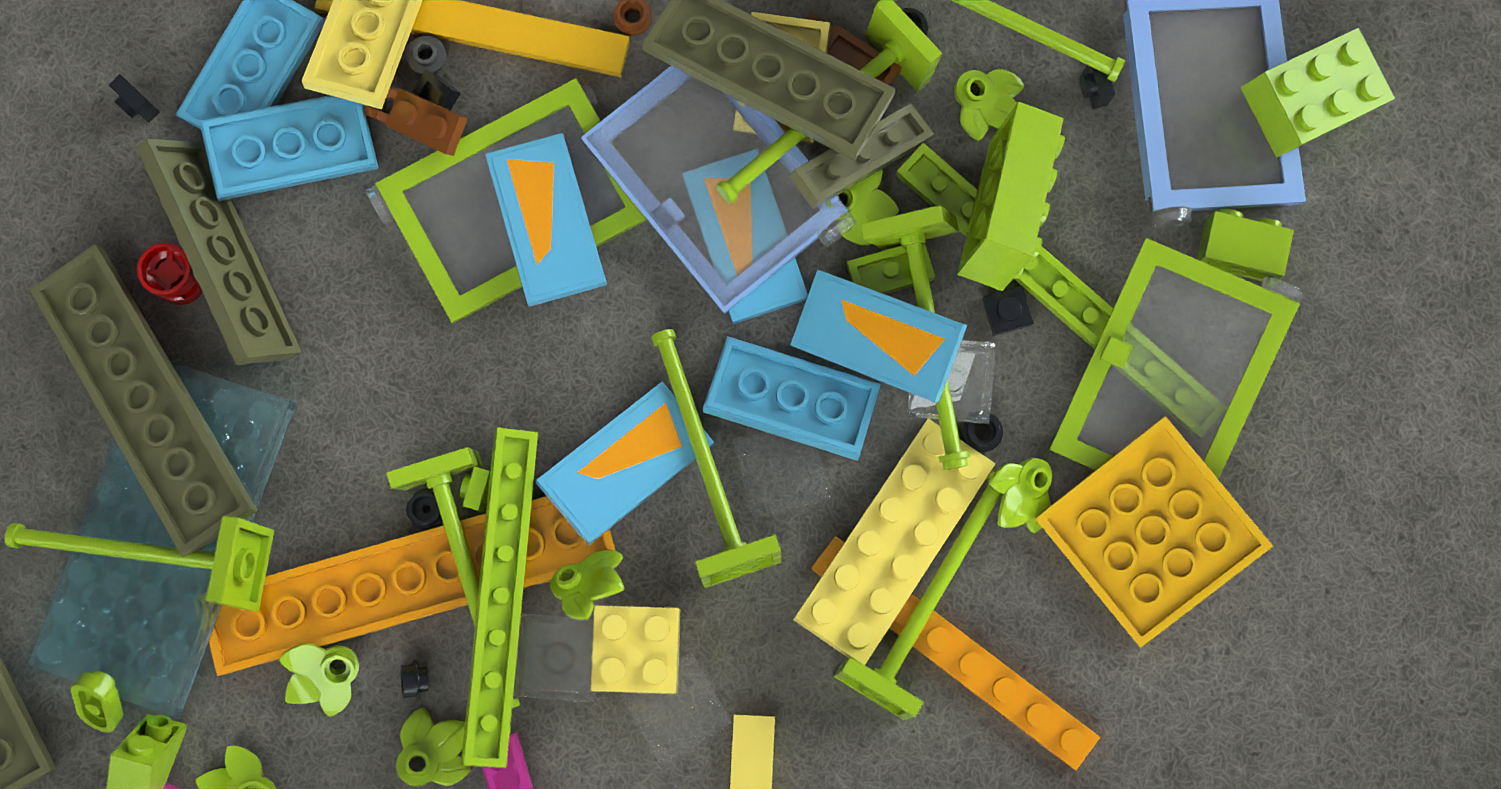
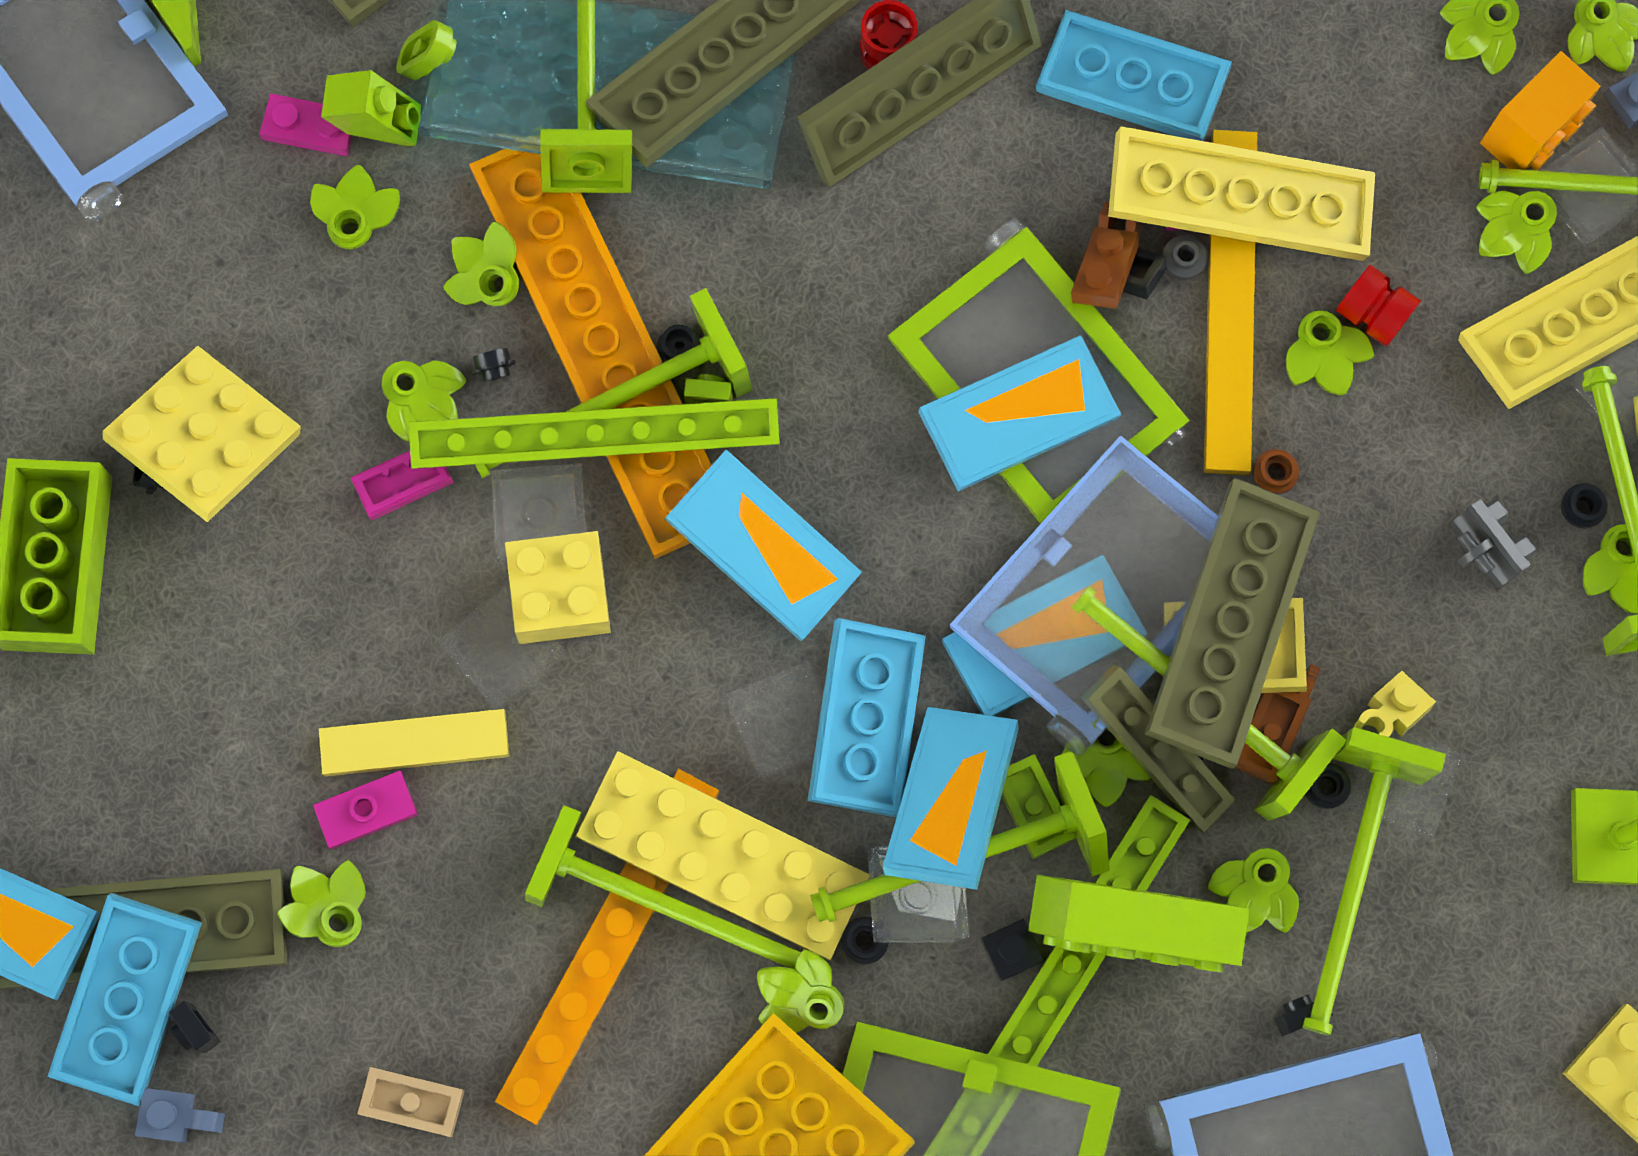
camera: 80 degrees right, 5 degrees down
(287, 146) = (1051, 129): medium azure tile -> none
(586, 582) = (623, 521): lime plate -> none
(738, 556) = (675, 680): lime tile -> none

